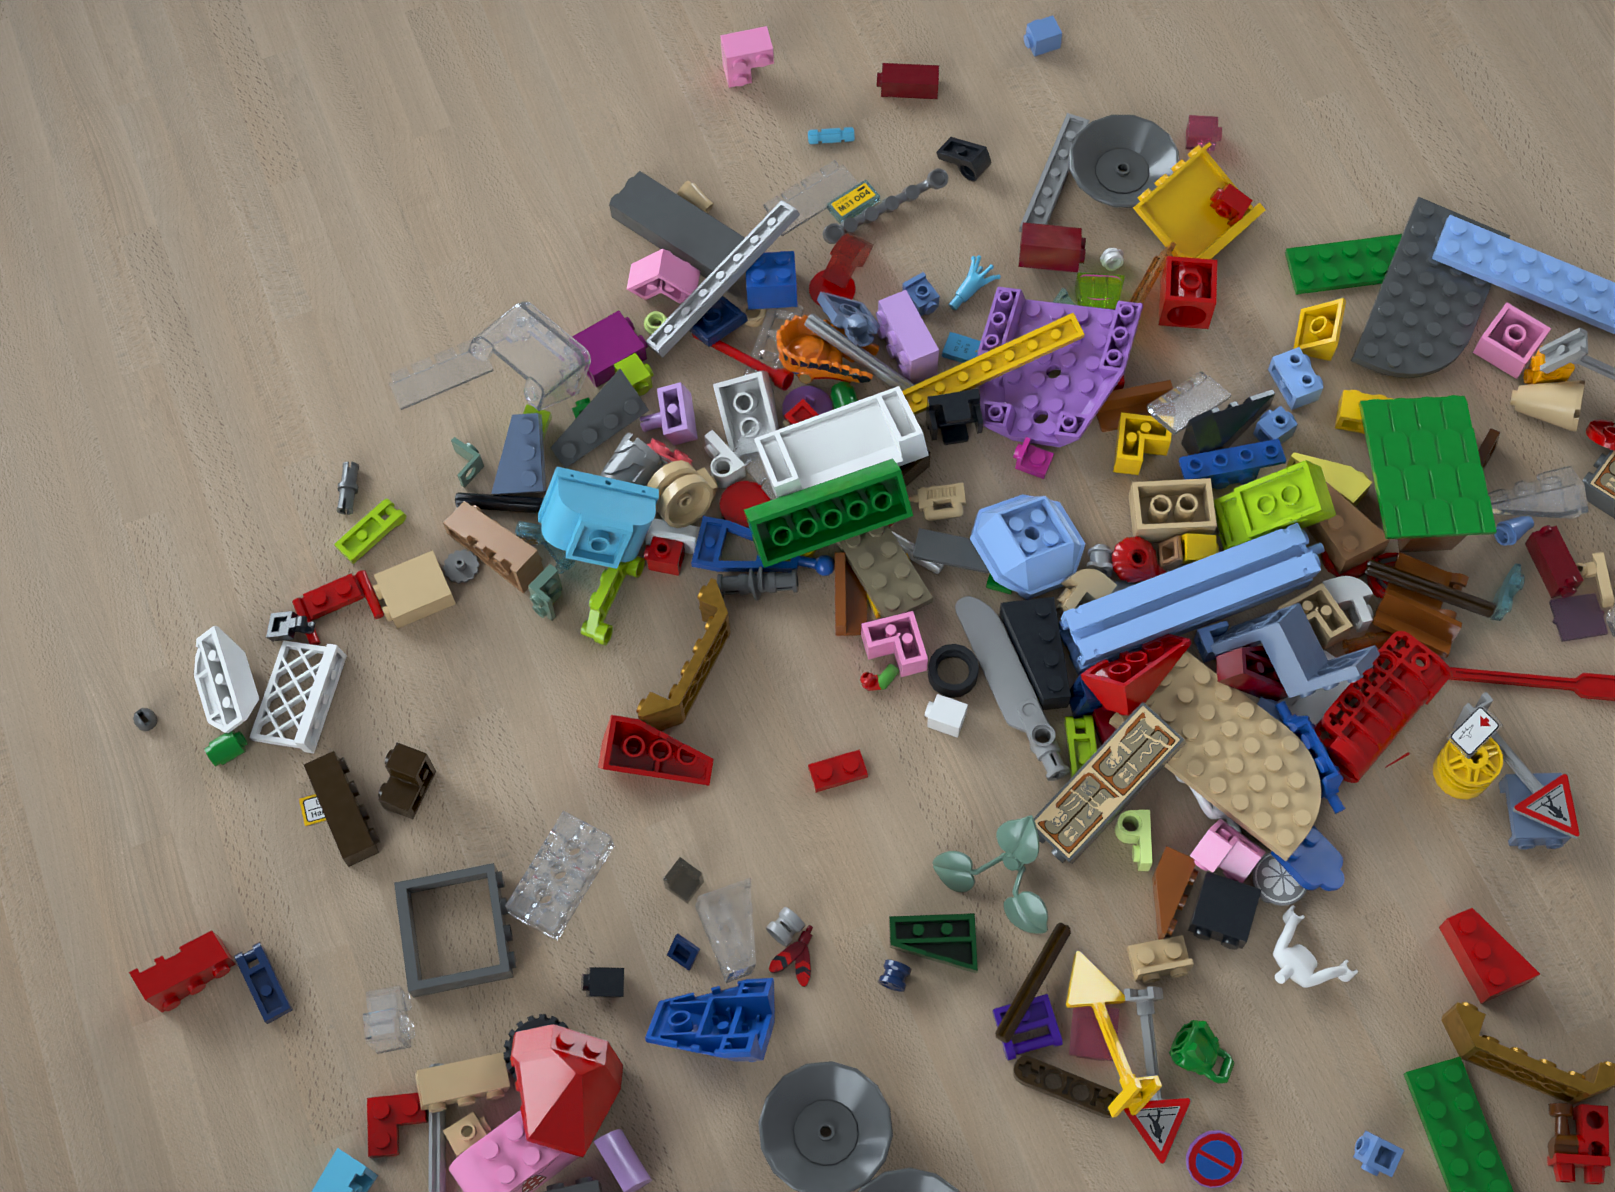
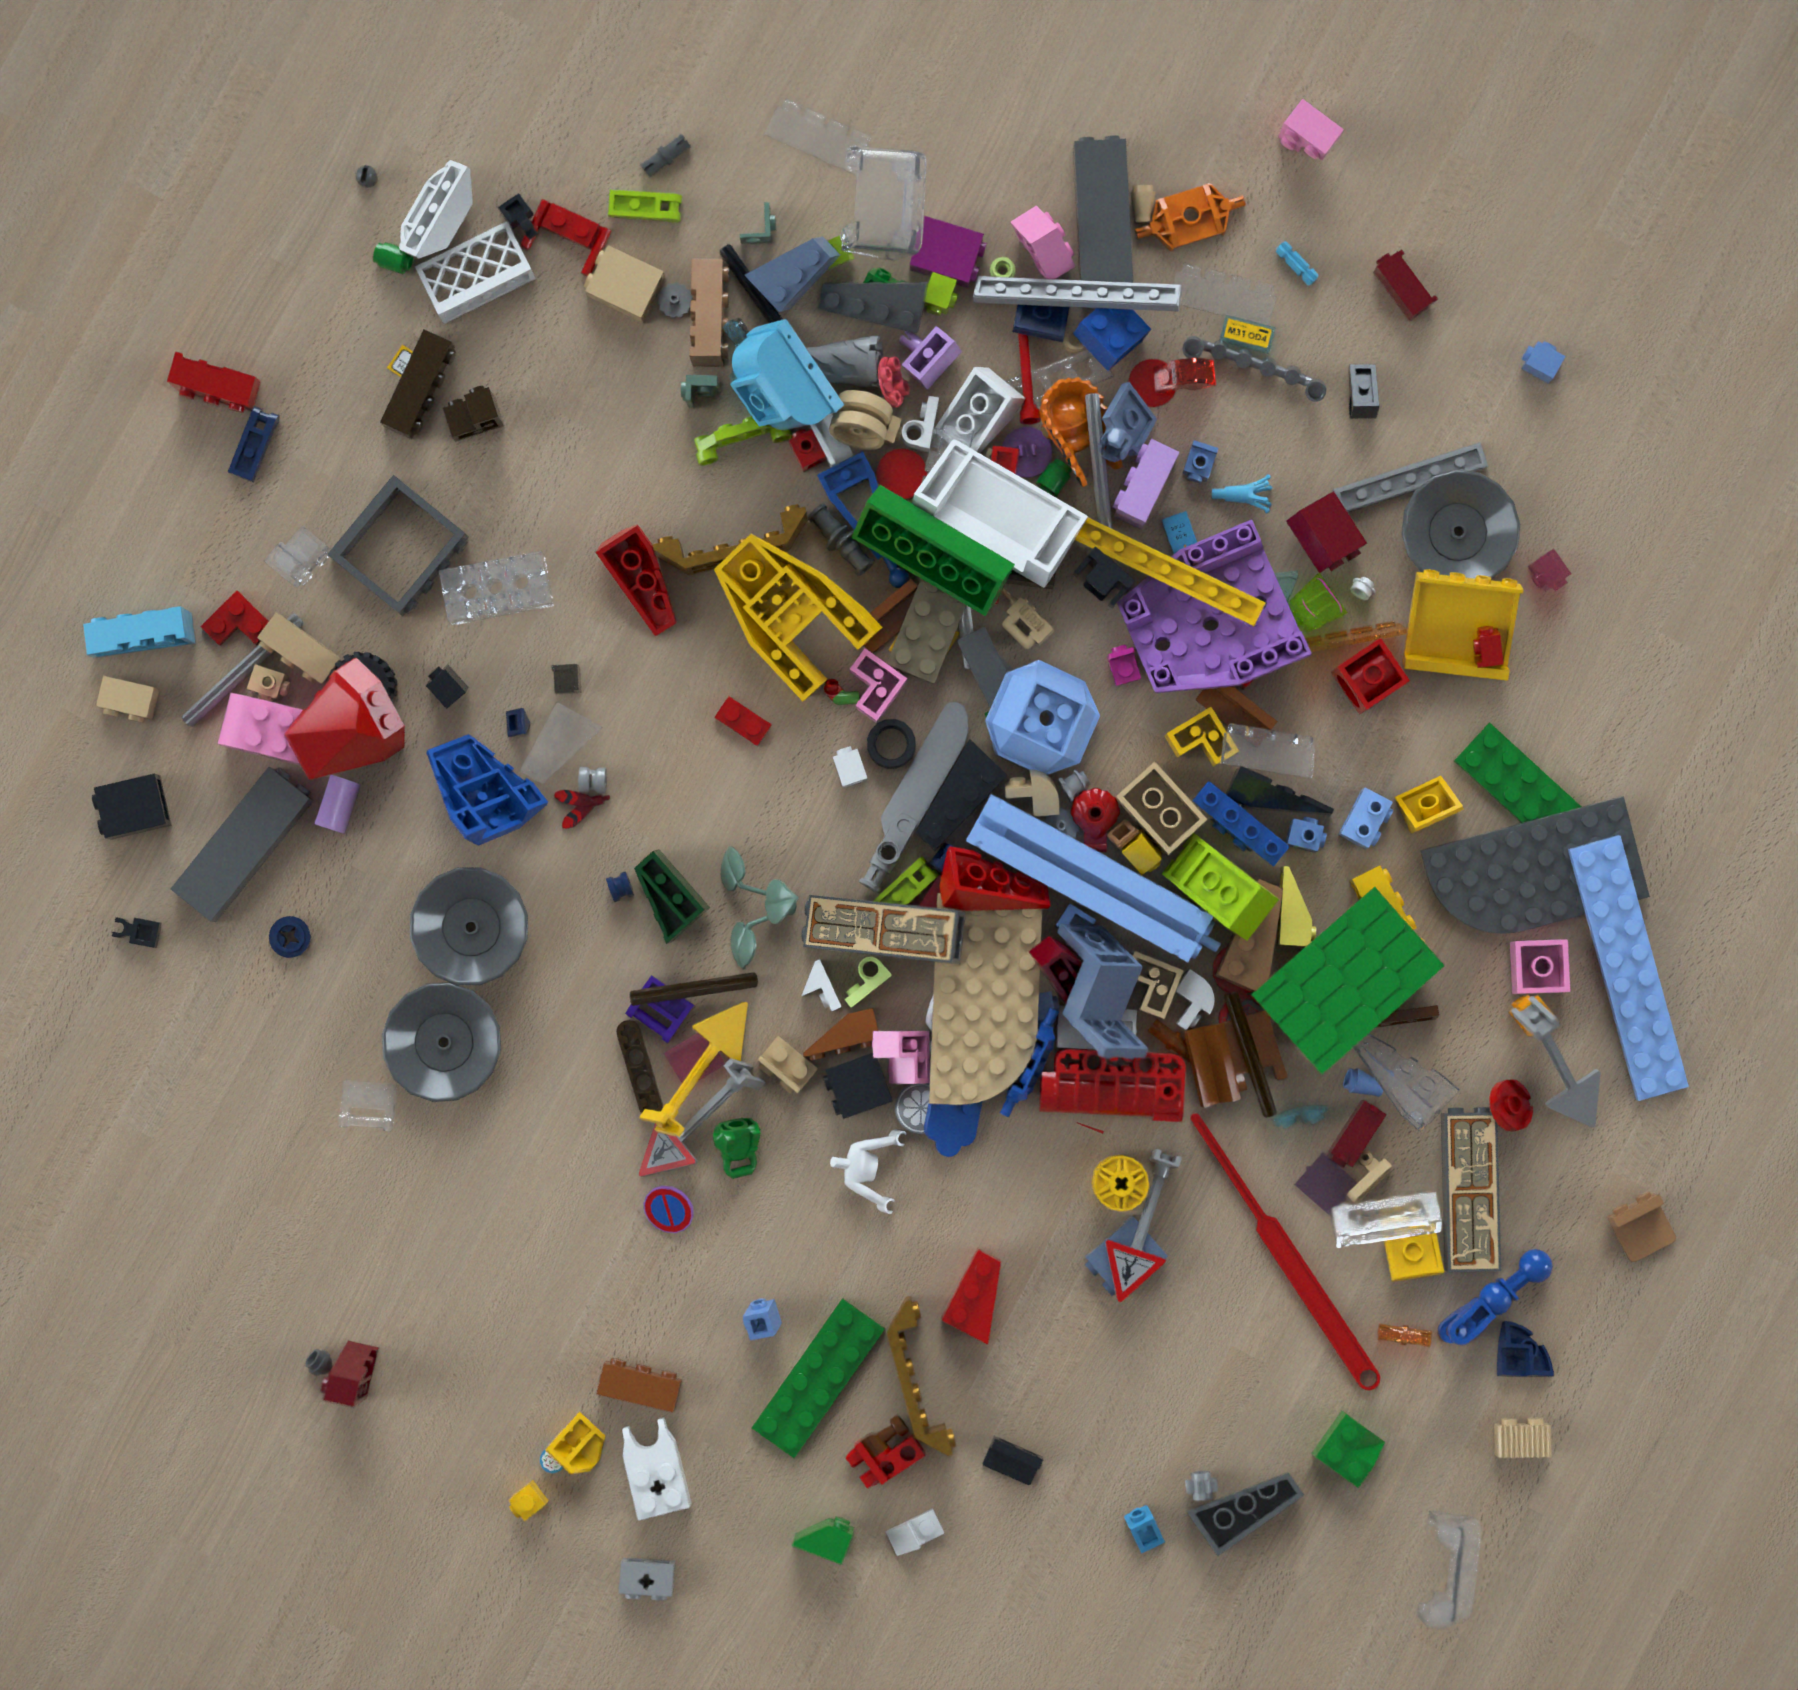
camera: 50 degrees right, 20 degrees up
(733, 192) = (1175, 231): none -> orange plate
(766, 653) = (778, 600): none -> yellow wedge
(1106, 873) = (819, 979): none -> white slope
(1474, 731) = (1141, 1170): white sticker -> none
(1551, 402) = (1504, 1037): tan cone -> none

